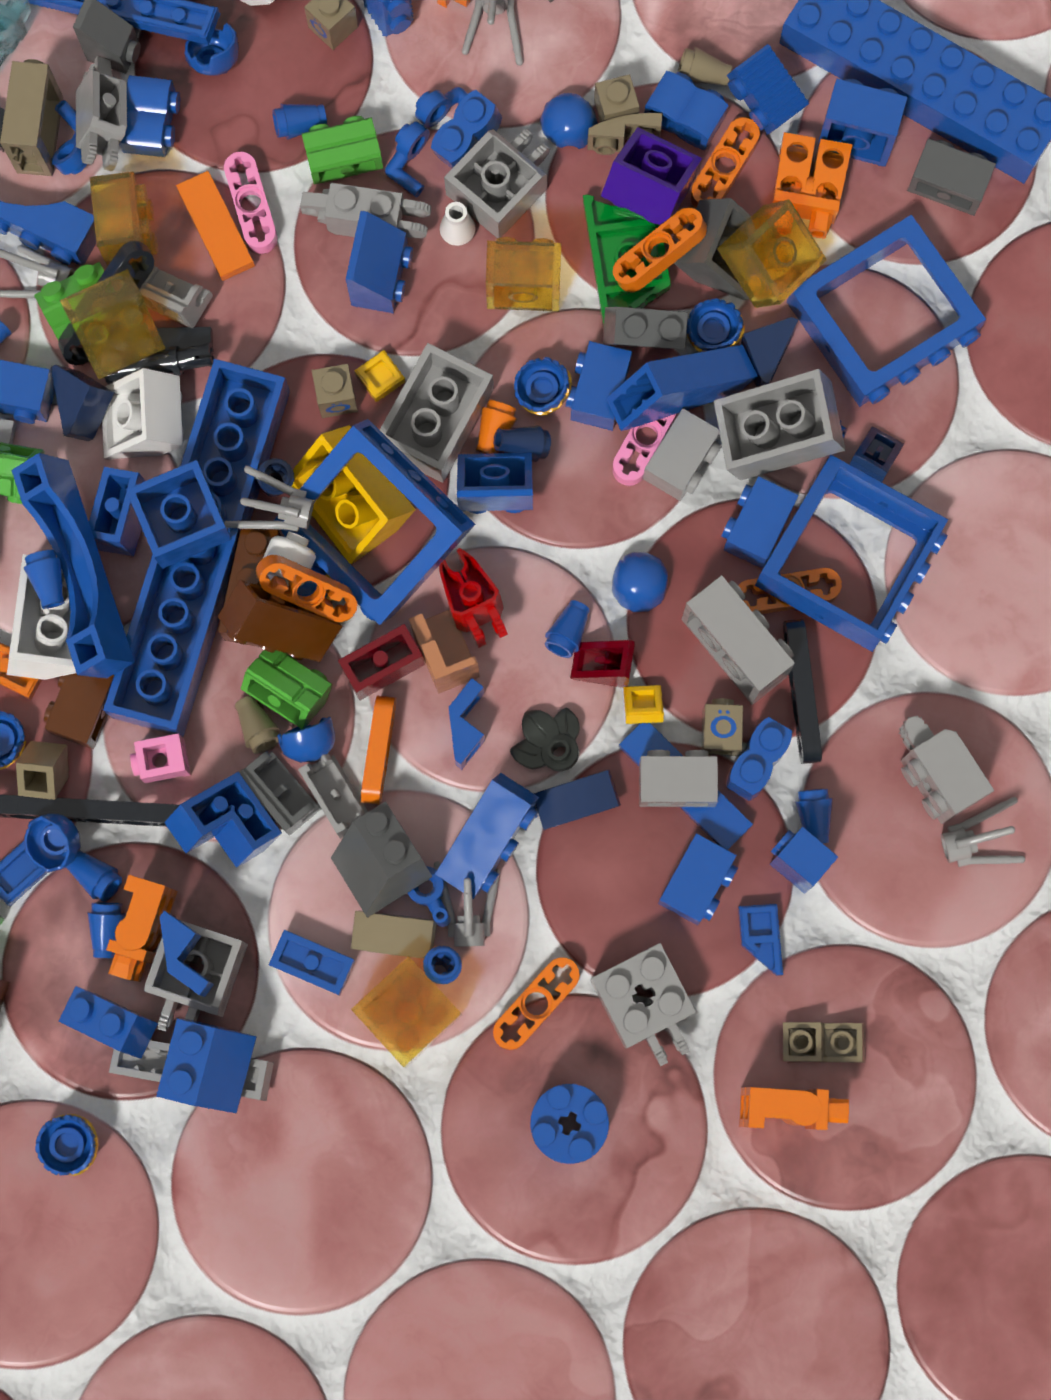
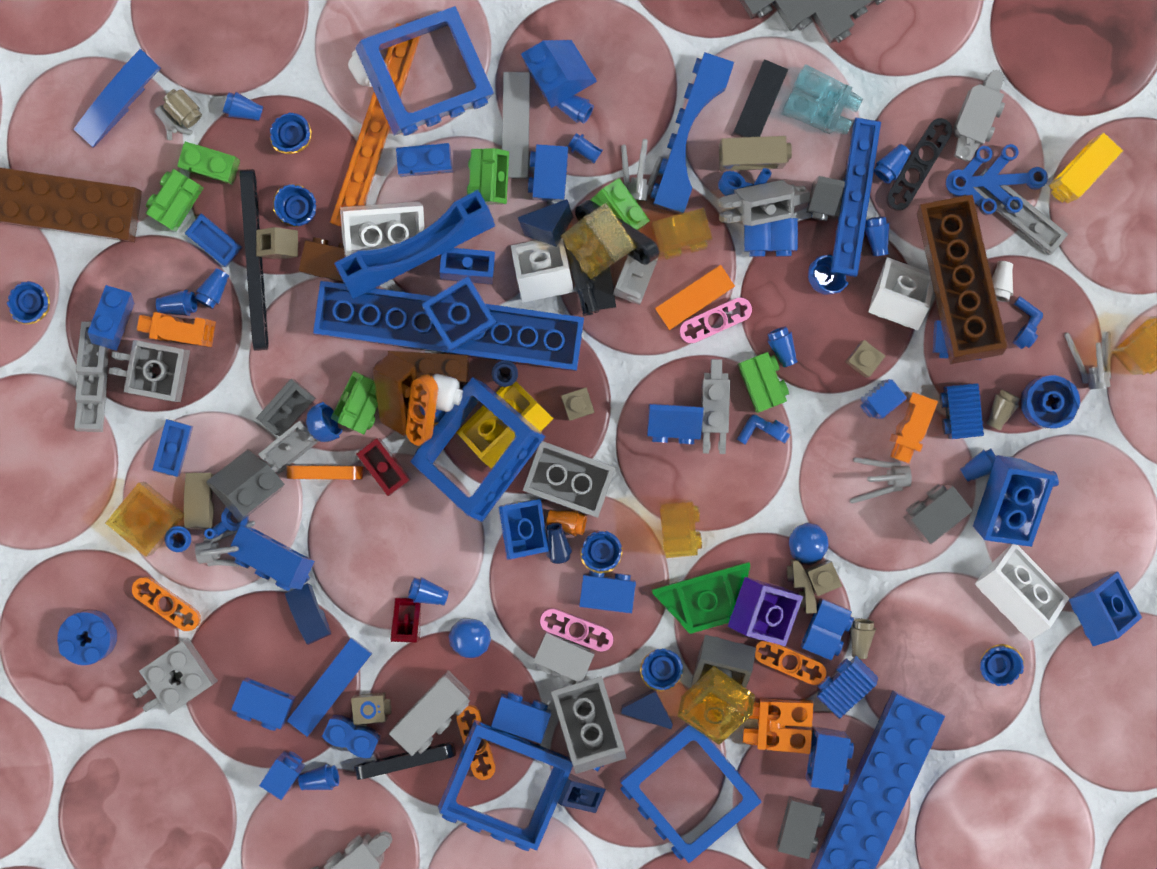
camera: 80 degrees right, 10 degrees up
(46, 577) = (405, 226): blue cone -> none
(52, 841) = (227, 259): blue hair -> none
(148, 750) = (288, 316): bright pink brick -> none
(178, 943) = (165, 360): blue slope -> none
(206, 1066) = (88, 390): blue slope -> none
(230, 815) = (261, 377): blue brick -> none
(257, 727) = (330, 385): dark tan cone -> none
(294, 510) = (473, 393): light grey plant -> none
(380, 376) = (597, 433): yellow tile -> none
(435, 105) = (805, 443): blue plate -> none
(444, 650) = (400, 508): nougat panel -> none
(457, 225) = (707, 473): white cone -> none
(465, 736) = (340, 531): blue slope -> none
(471, 121) = (791, 475): blue brick -> none
(474, 599) = (434, 524): red hinge -> none
(514, 180) = (766, 497): light grey hinge -> none
(544, 736) = (349, 584): pearl dark grey plate -> none
(643, 704) = (381, 651): yellow tile -> none
(645, 328) = (650, 620): dark grey brick -> none
(662, 234) = (728, 632): orange beam -> none
(678, 779) = (327, 683): light grey brick -> none
(680, 382) = (609, 652): blue slope -> none
(761, 935) = (233, 751): blue tile -> none
(794, 1107) = (116, 784): orange hips -> none
(823, 1042) = (166, 800): dark tan slope -> none

